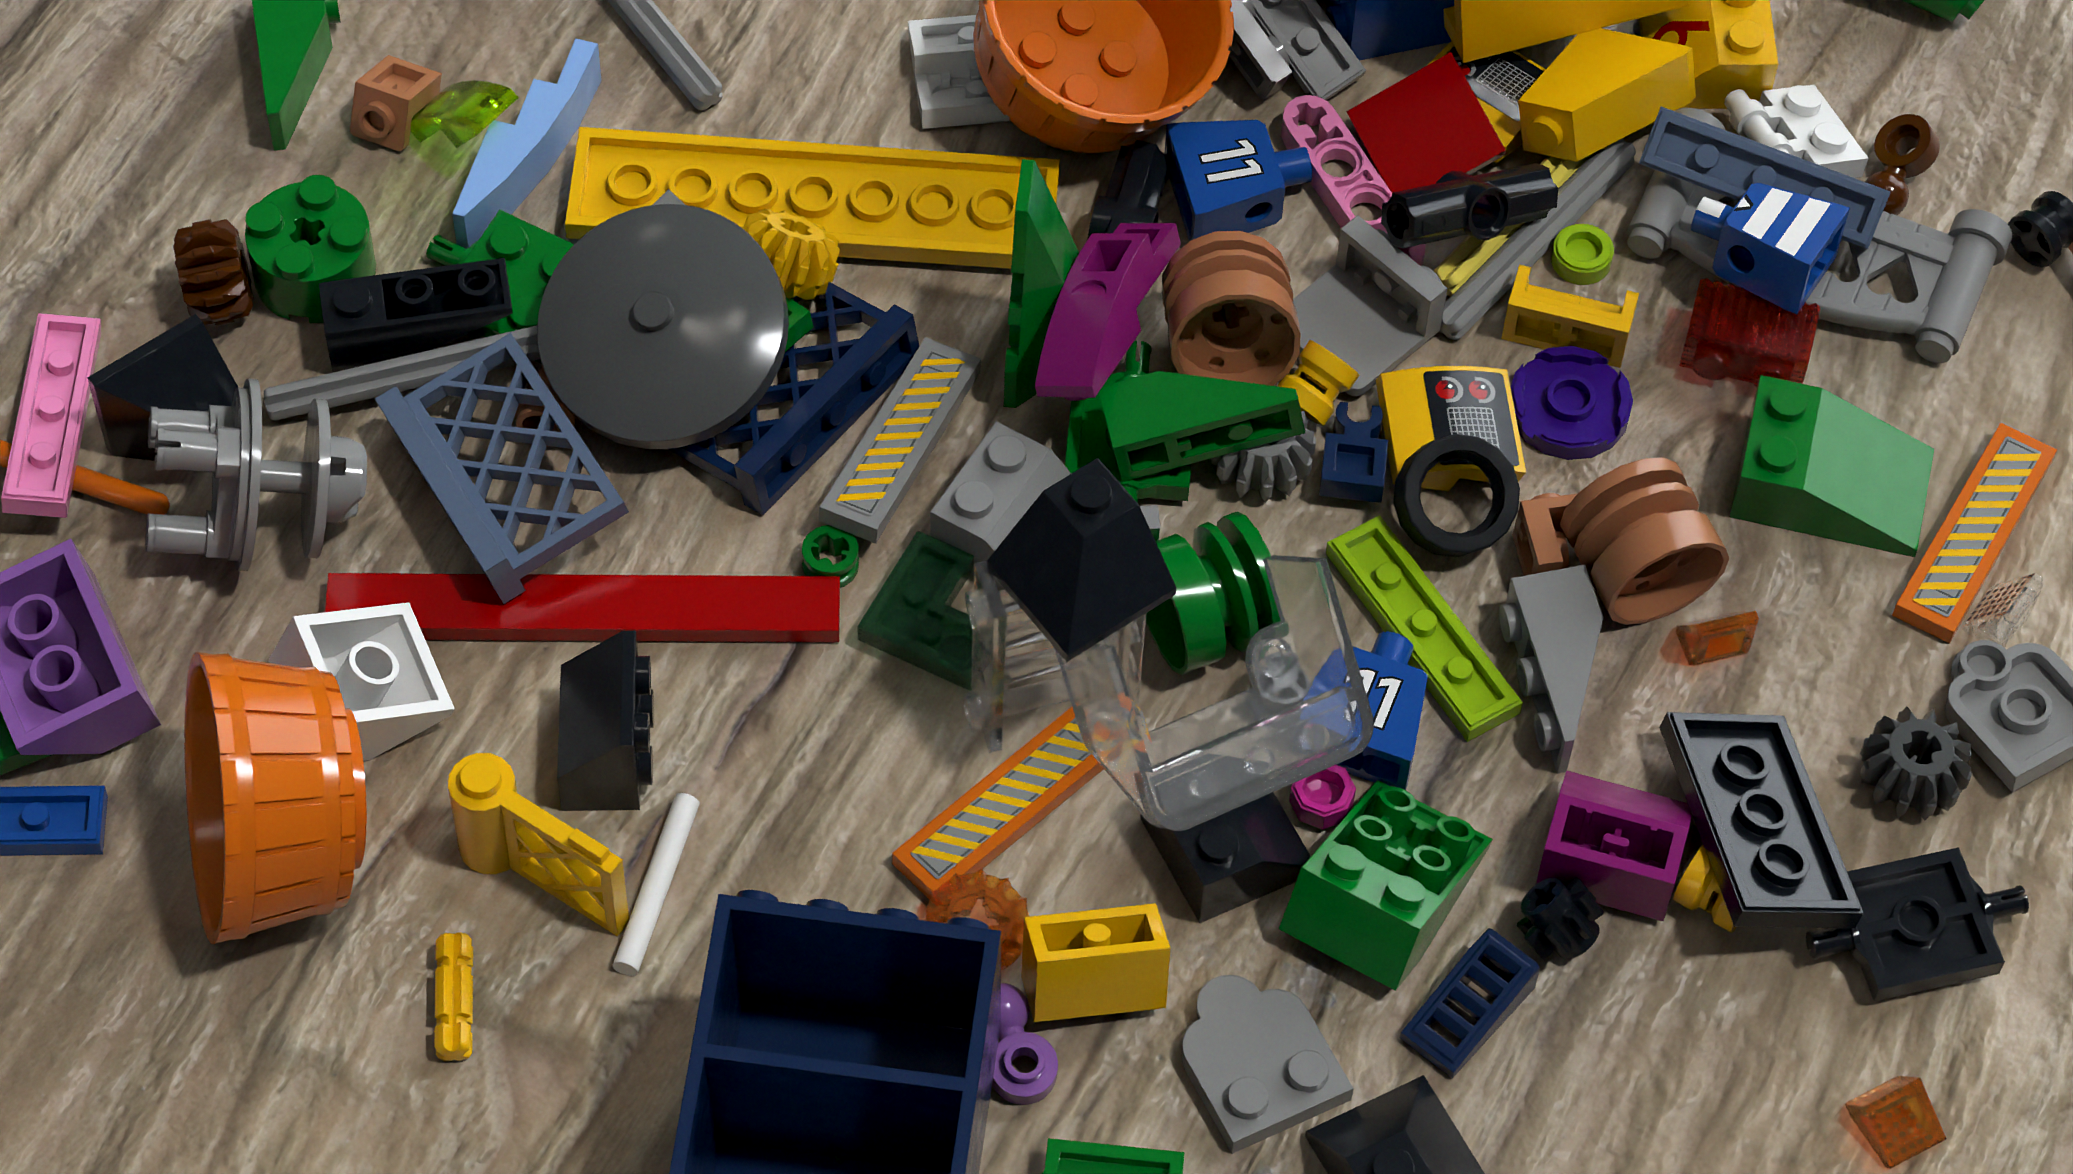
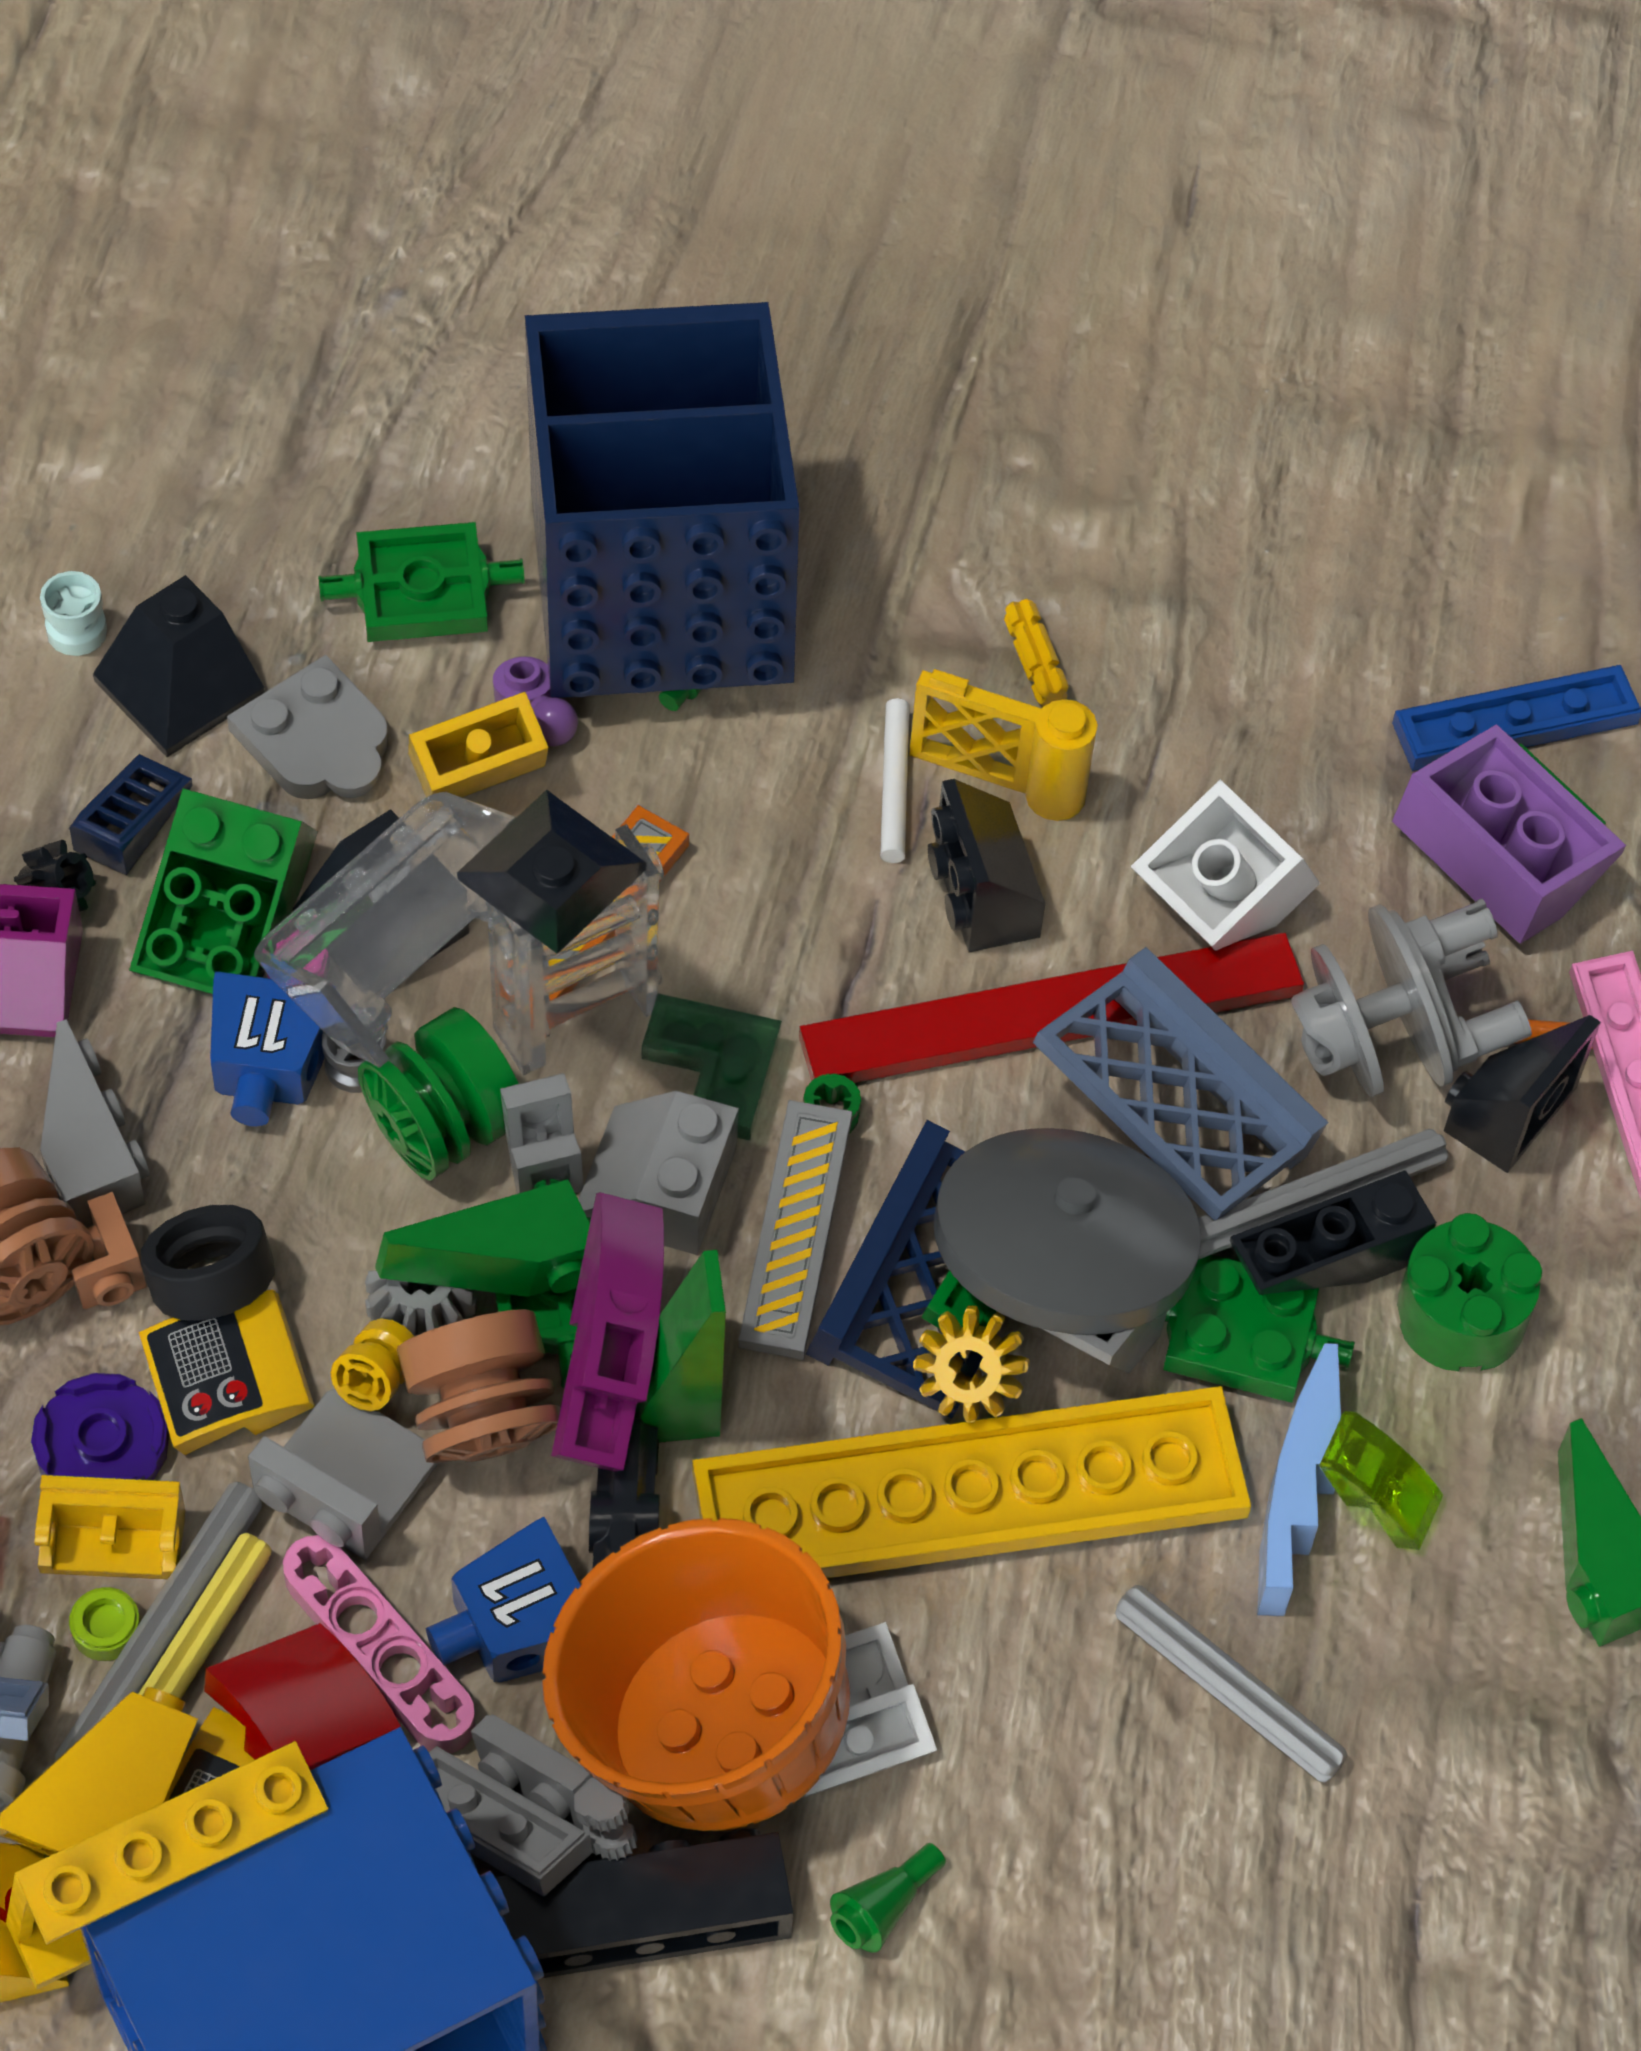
camera: 165 degrees right, 0 degrees up
(213, 272) = (1557, 1233): reddish brown gear -> none
(270, 793) = (1252, 682): orange piece -> none
(389, 99) = (1466, 1511): nougat bracket -> none
(1000, 901) = (619, 785): clear orange gear -> none
(1354, 458) = (321, 1305): dark blue plate -> none
(1409, 604) = (225, 1157): lime tile -> none
(1469, 205) = (235, 1568): black piece -> none

